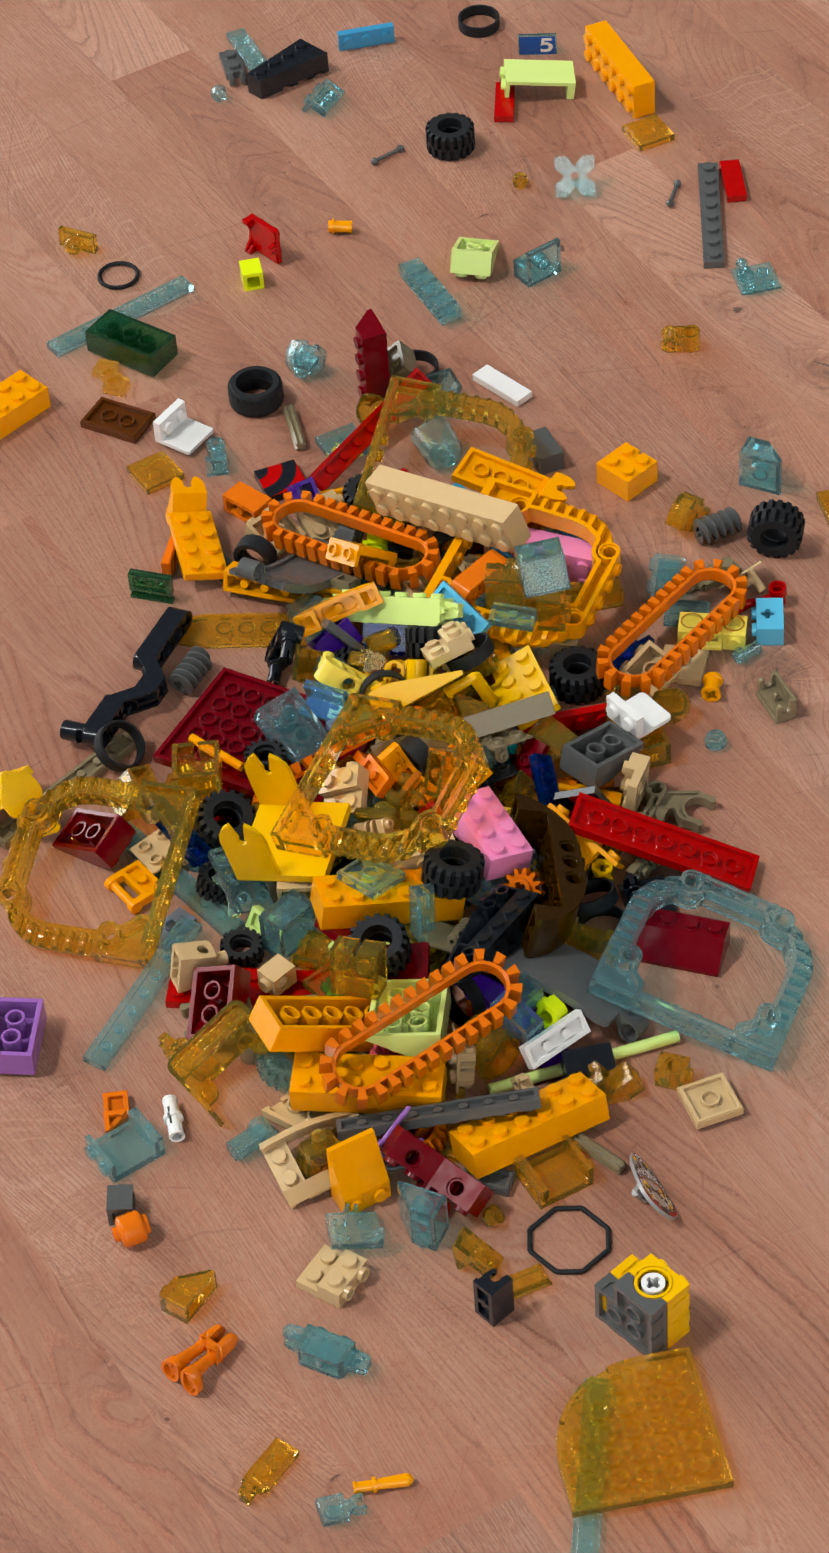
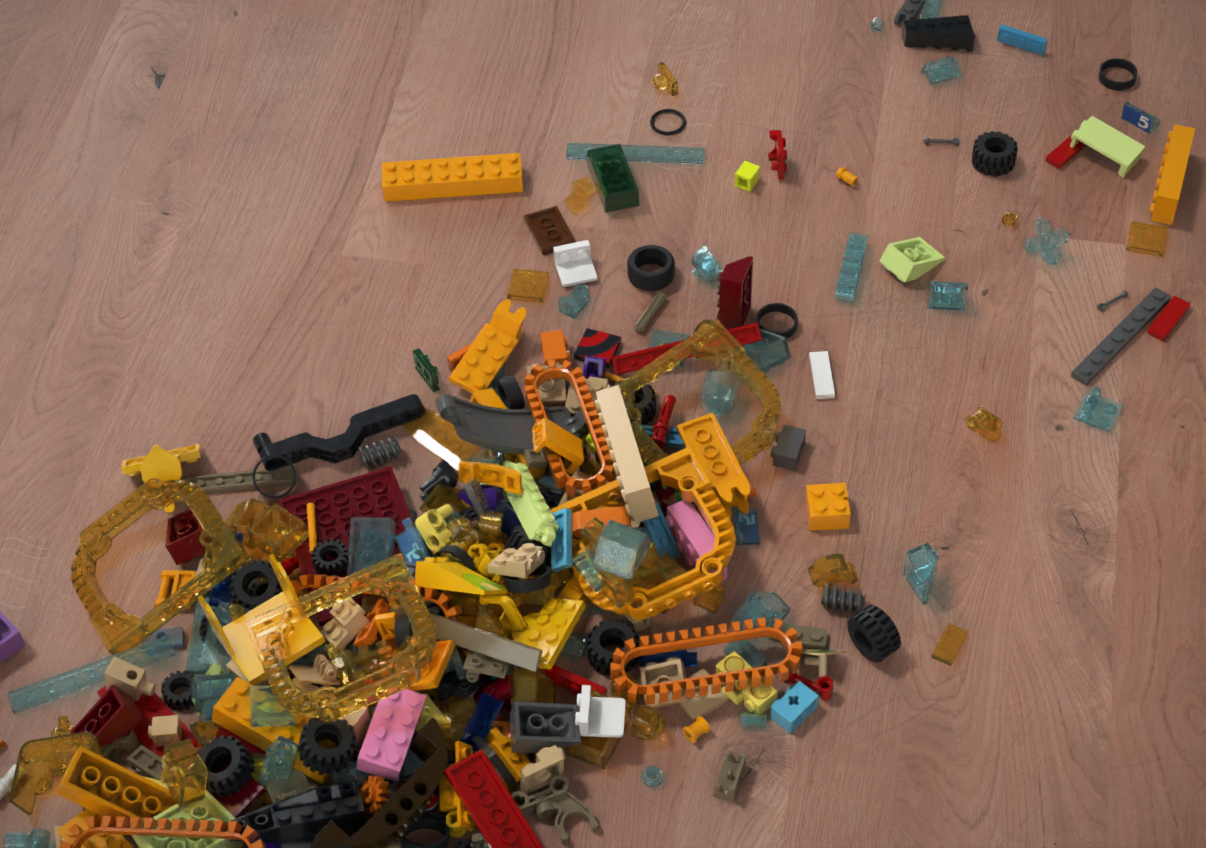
camera: 40 degrees right, 5 degrees up
(401, 359) = (762, 310): dark tan hinge -> none

